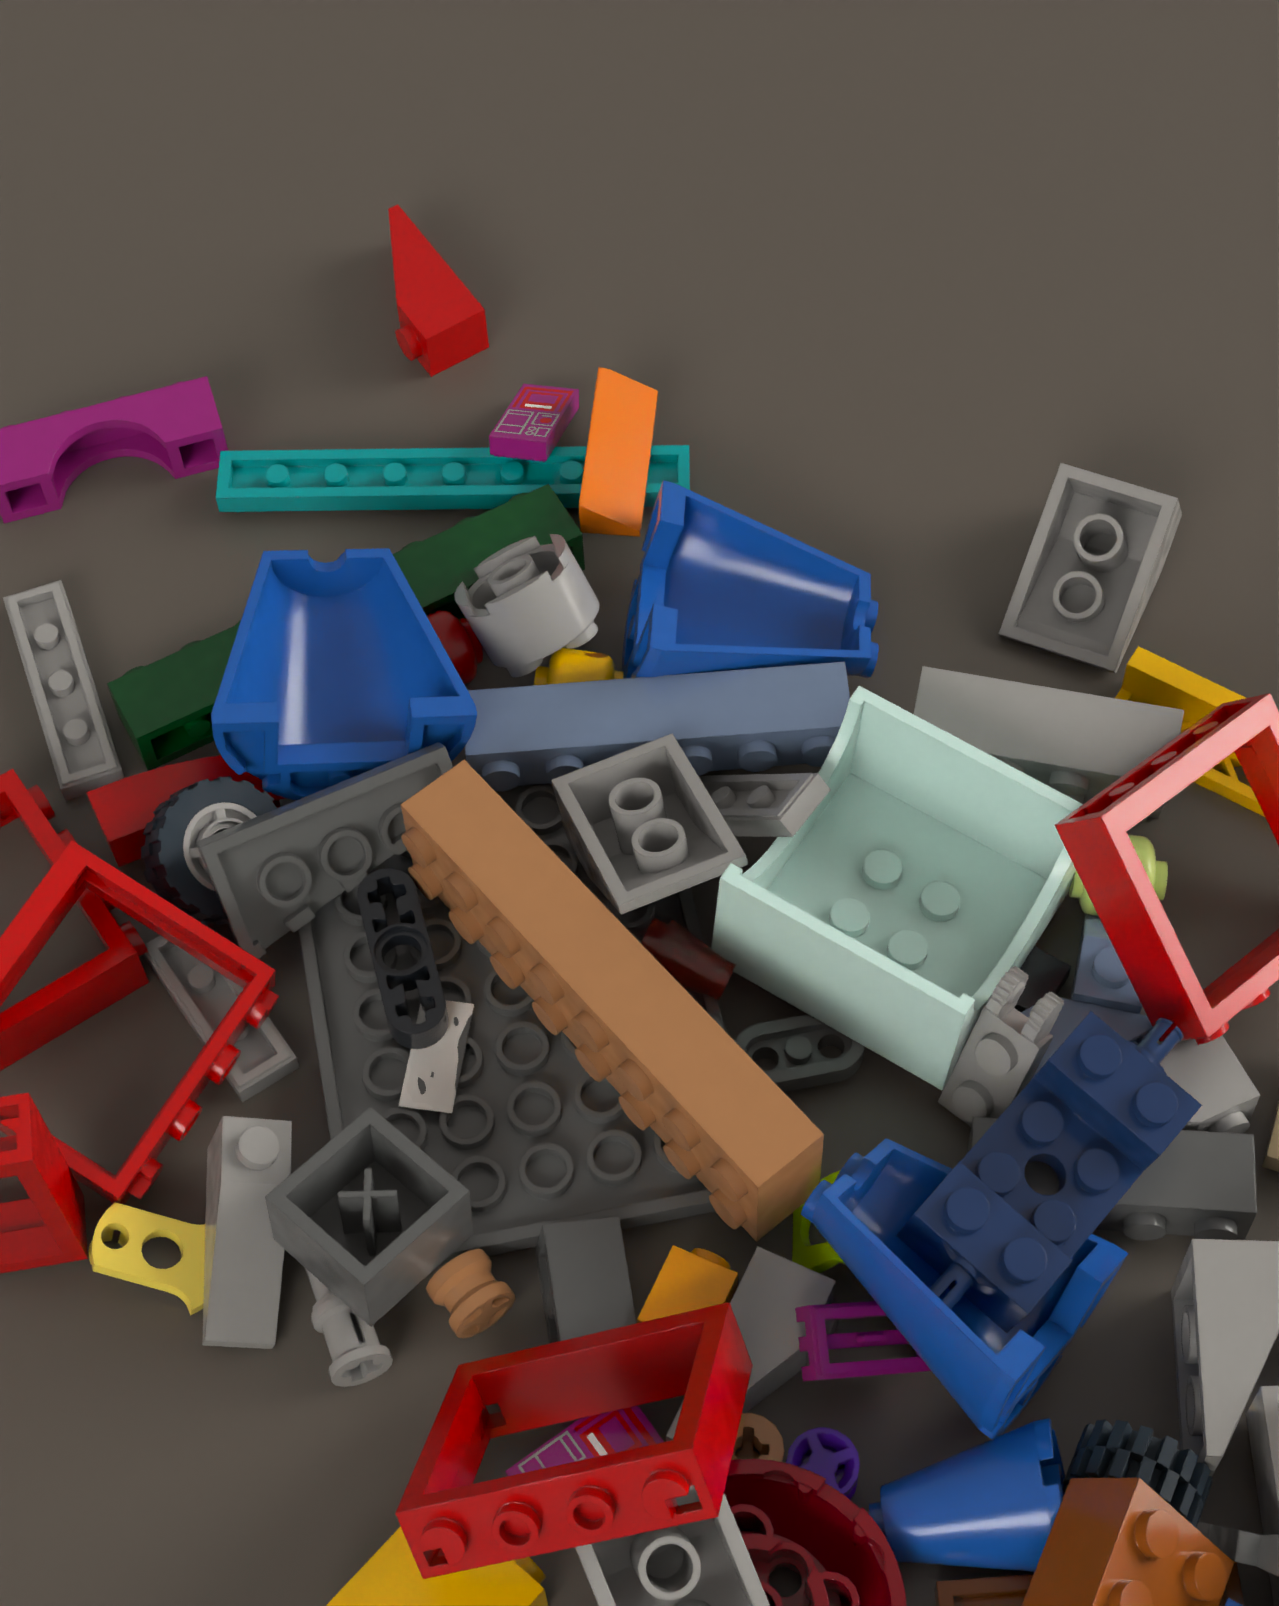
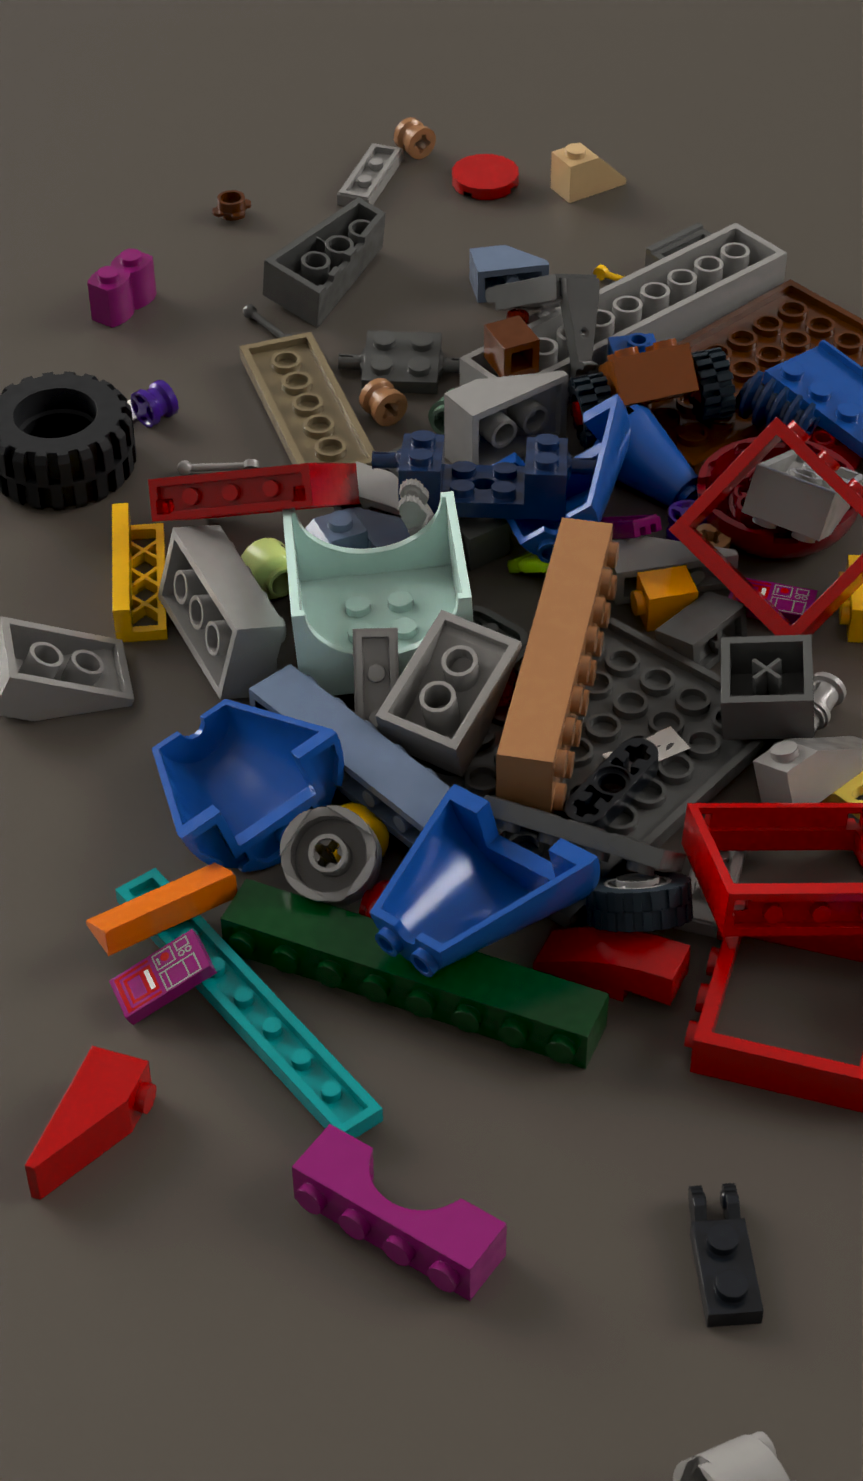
camera: 130 degrees left, 15 degrees down
(63, 689) = (597, 1107): light grey tile -> none

